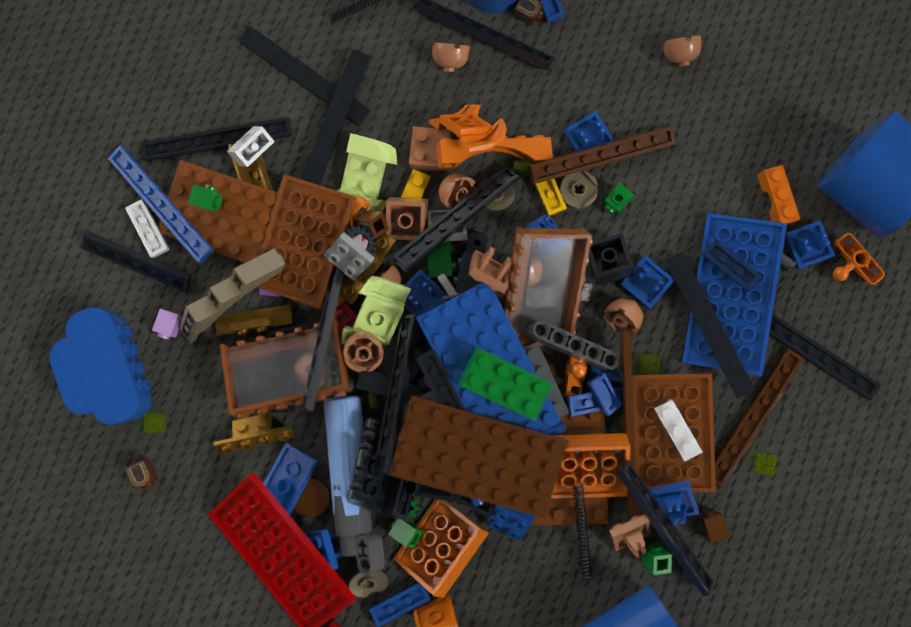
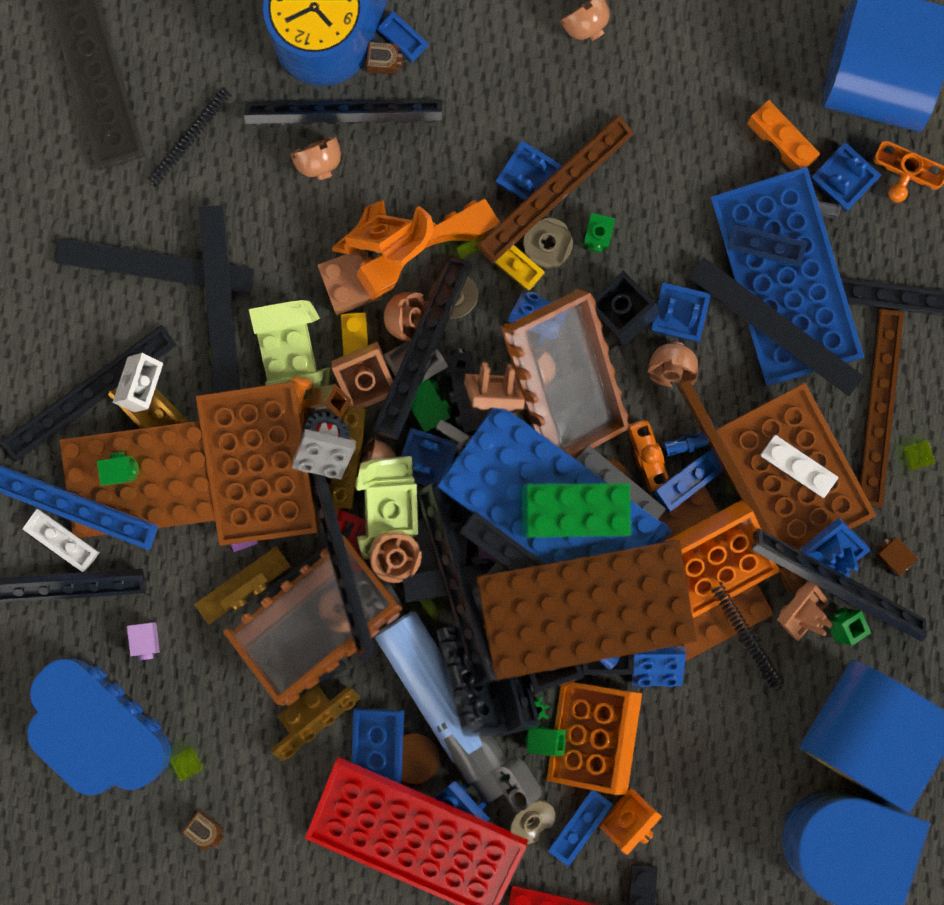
camera: 30 degrees left, 0 degrees up
(221, 296) = (199, 570): dark tan arch -> none
(564, 346) = (641, 423): dark grey beam -> none
(604, 394) = (695, 466): blue tile -> none
(648, 364) = (730, 407): clear neon green tile -> none

